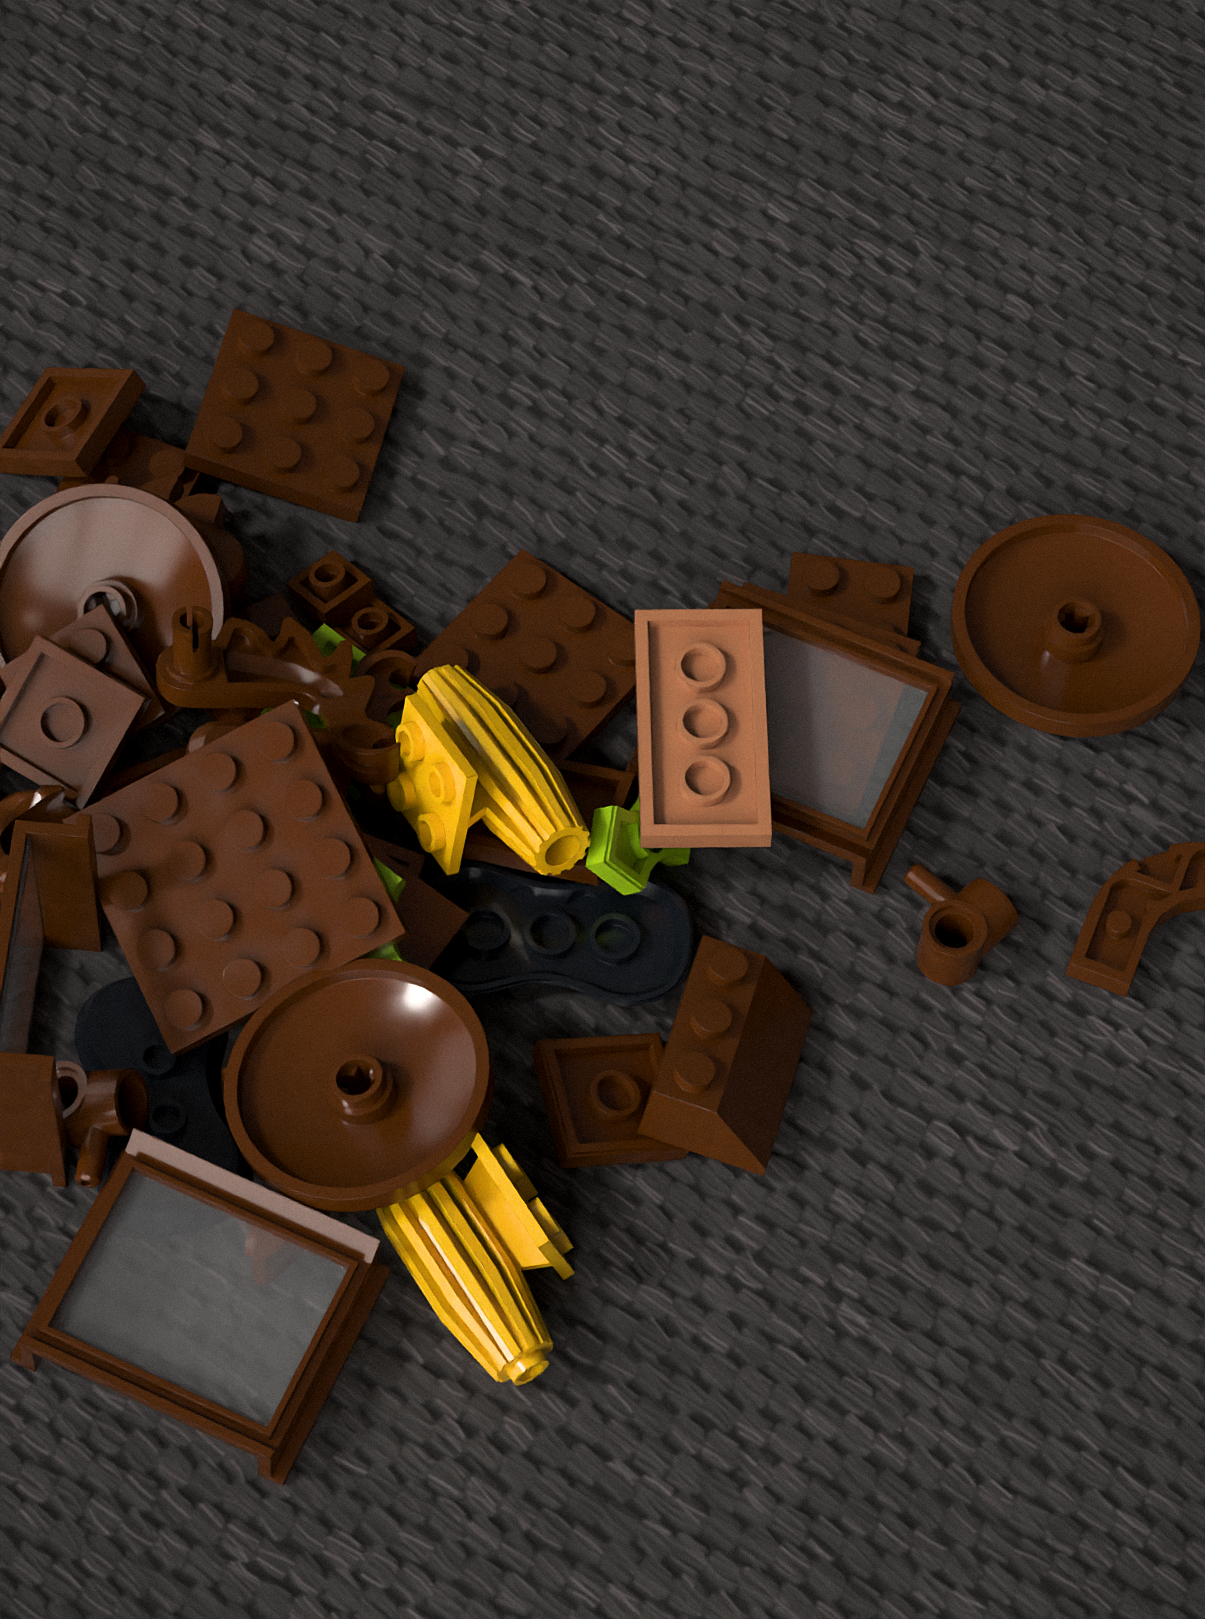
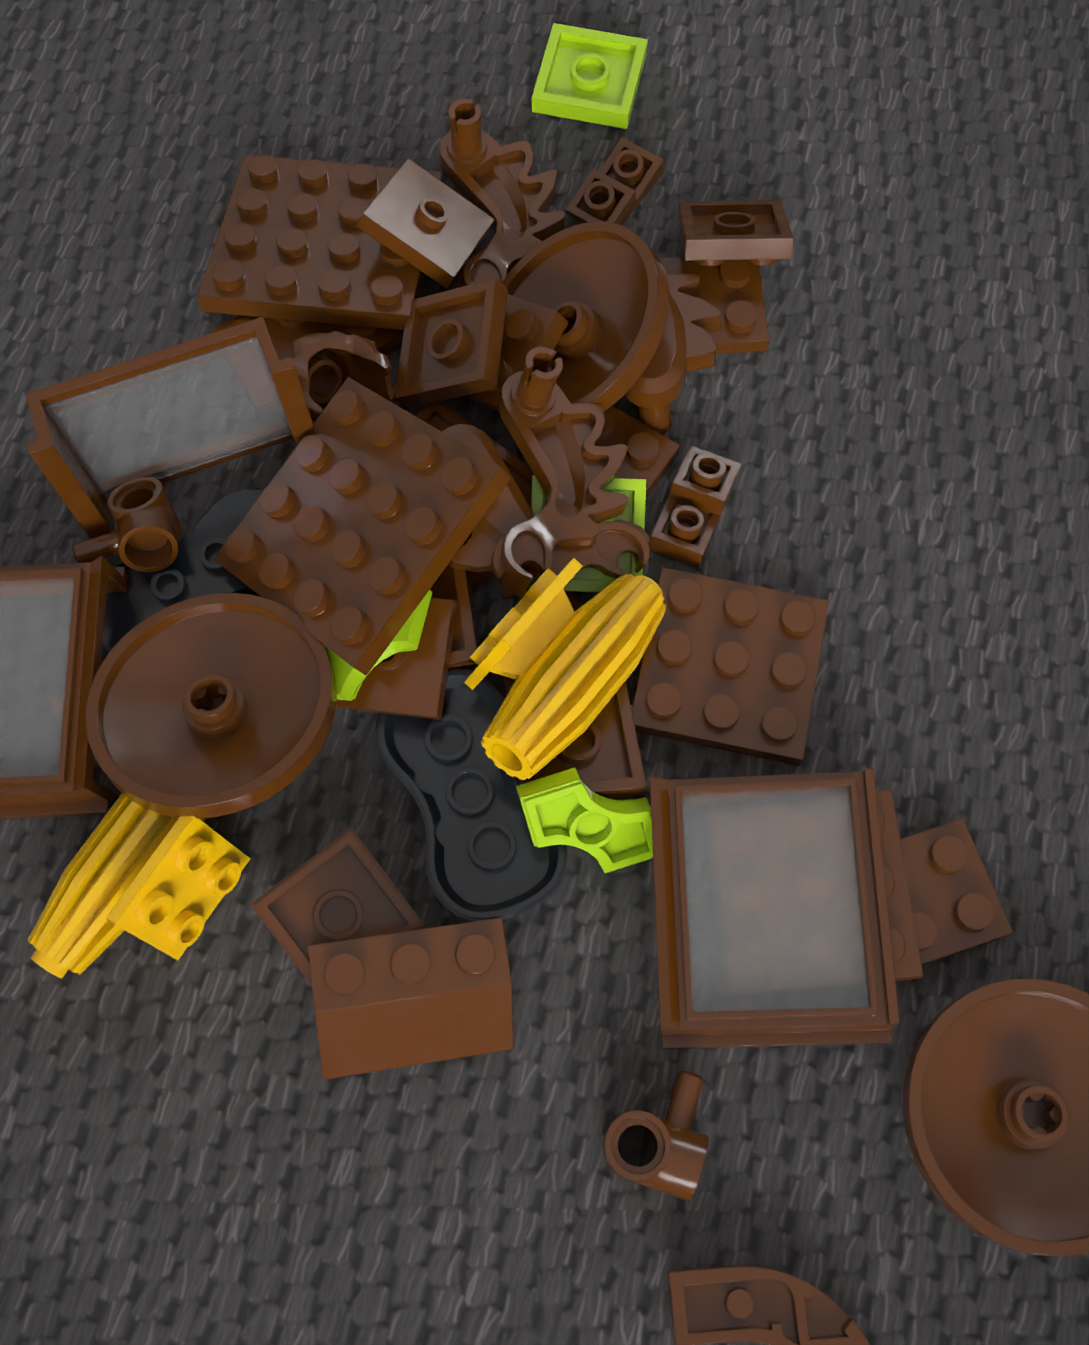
camera: 70 degrees right, 10 degrees up
(293, 416) = (845, 377): reddish brown plate -> none
(702, 728) = (704, 819): nougat plate -> none

